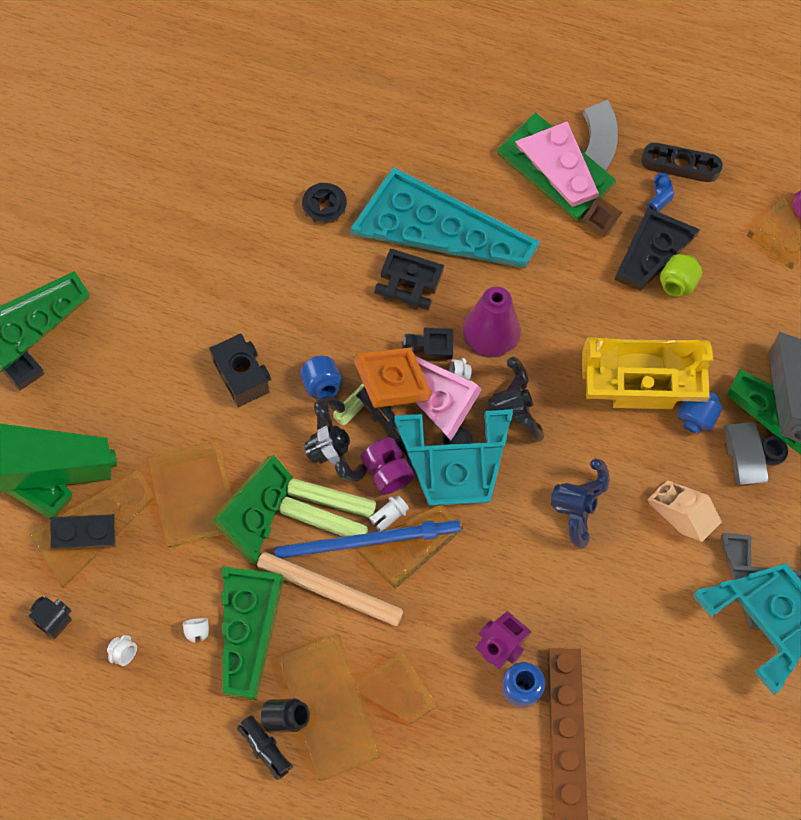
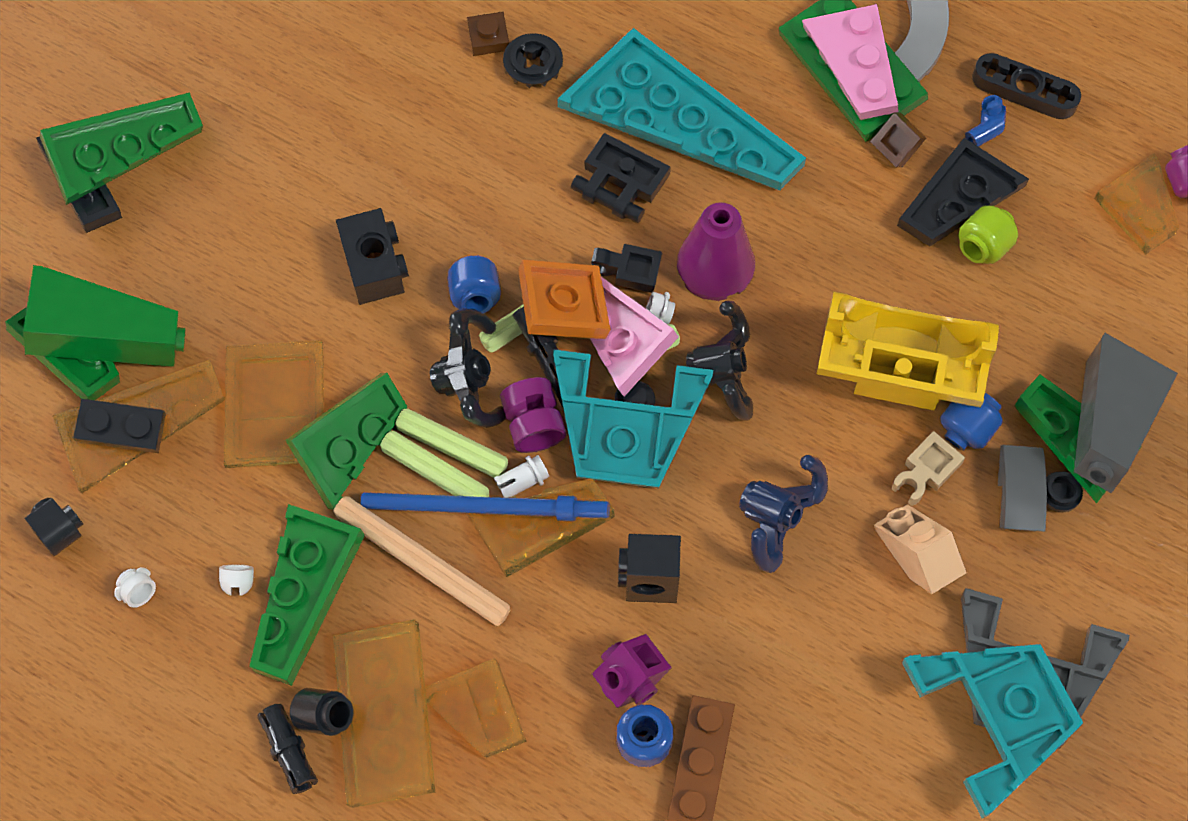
camera: 15 degrees right, 0 degrees up
(286, 188) = (488, 33): none -> reddish brown plate
(501, 562) = (650, 568): none -> black brick
(677, 449) = (929, 464): none -> tan plate

